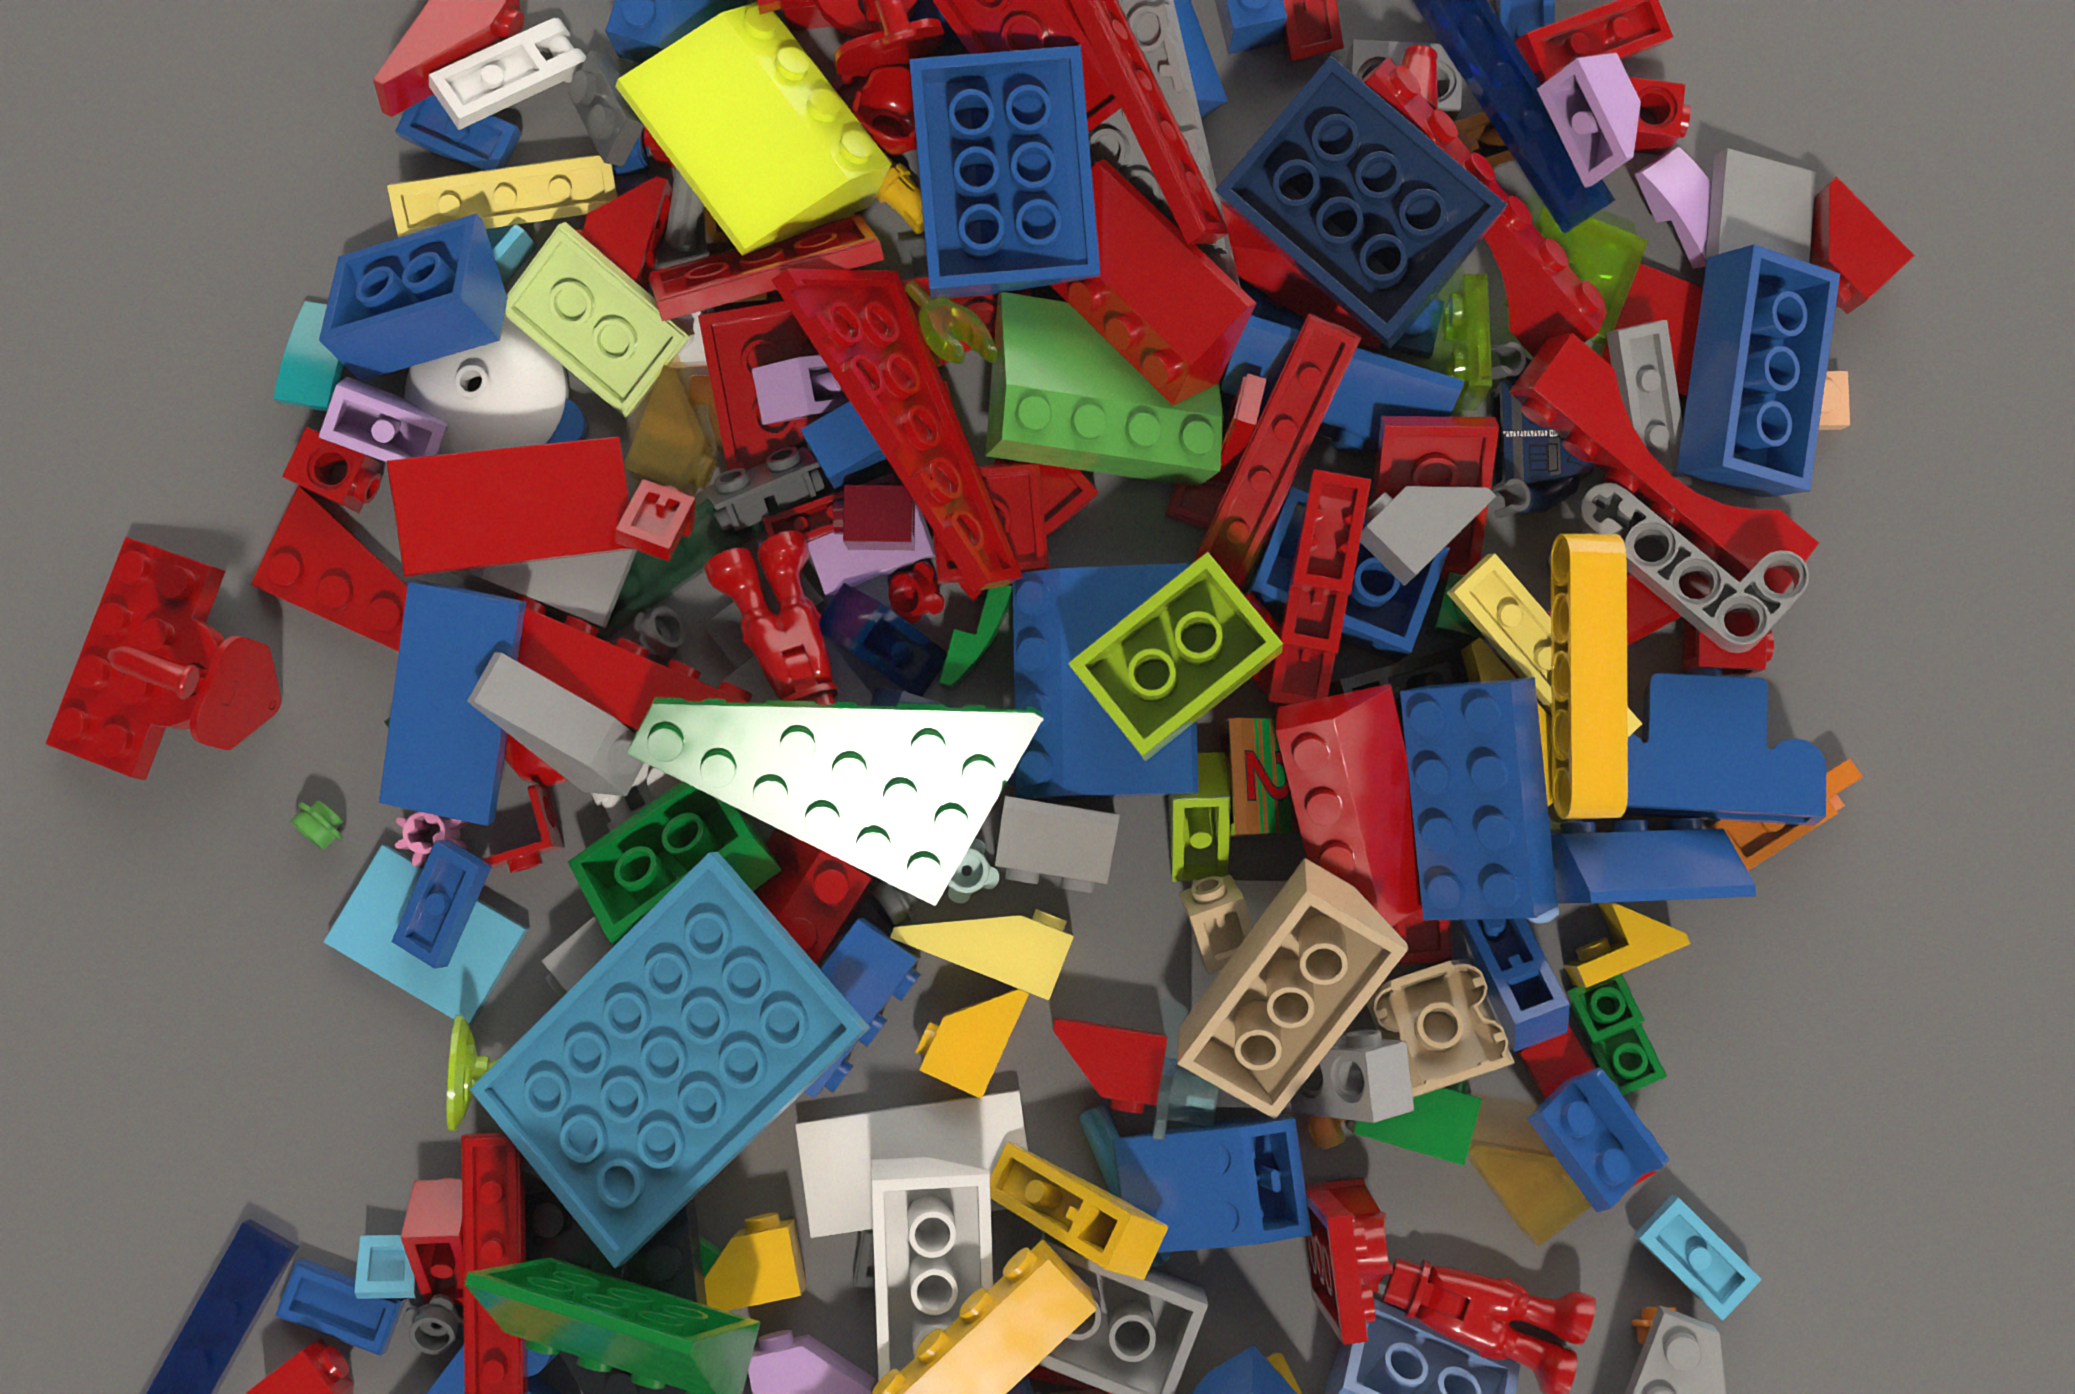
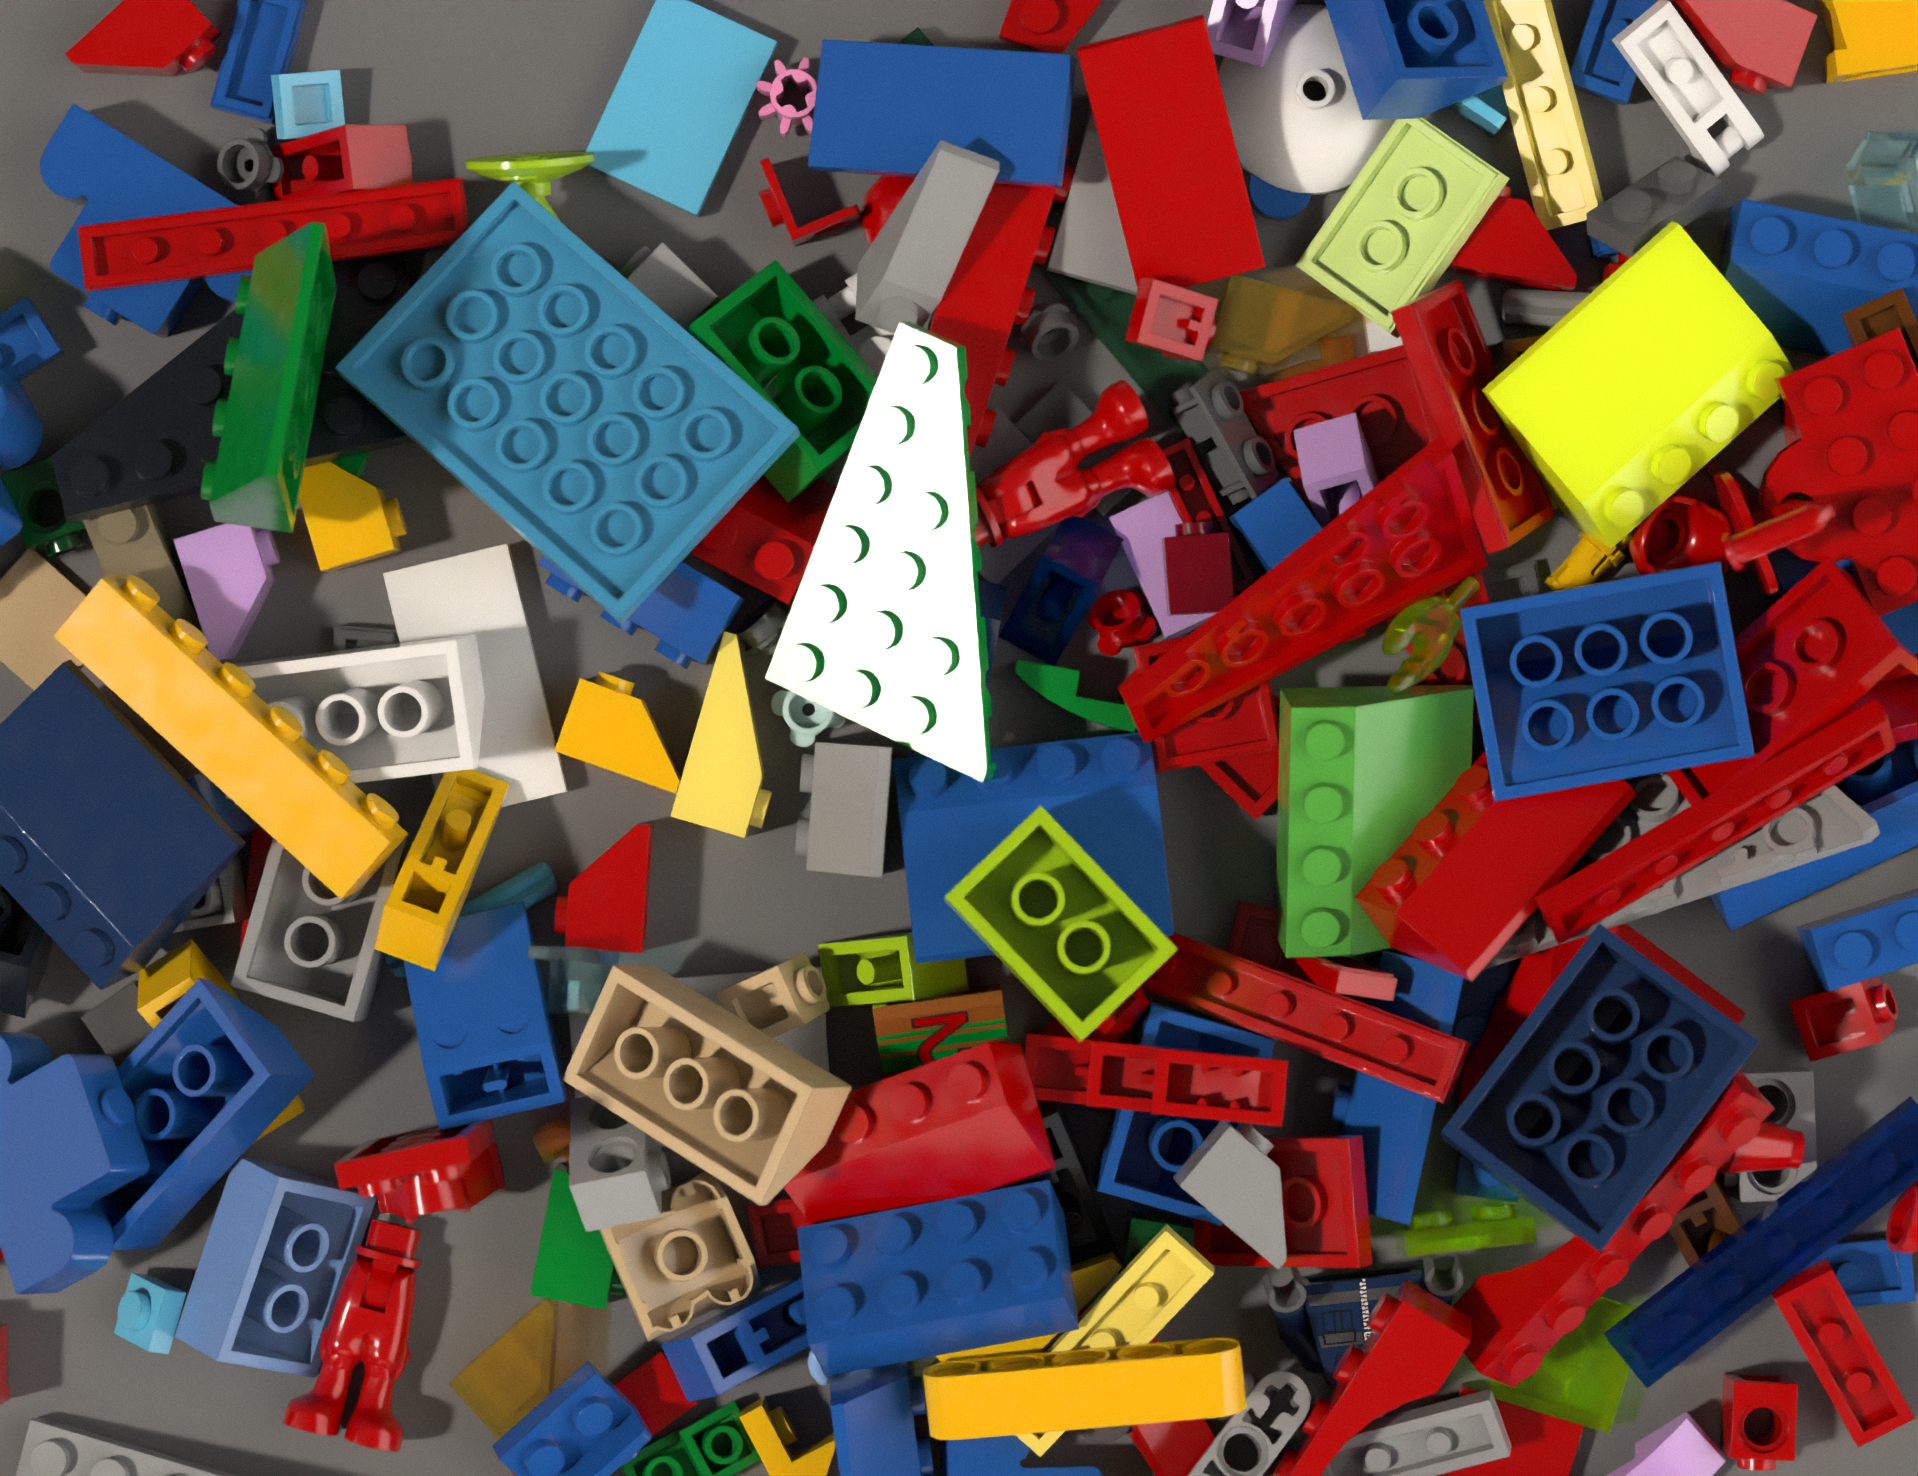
camera: 80 degrees right, 5 degrees up
(441, 904) = (716, 122): blue plate -> none
(1594, 114) = (1738, 1354): lavender slope -> none

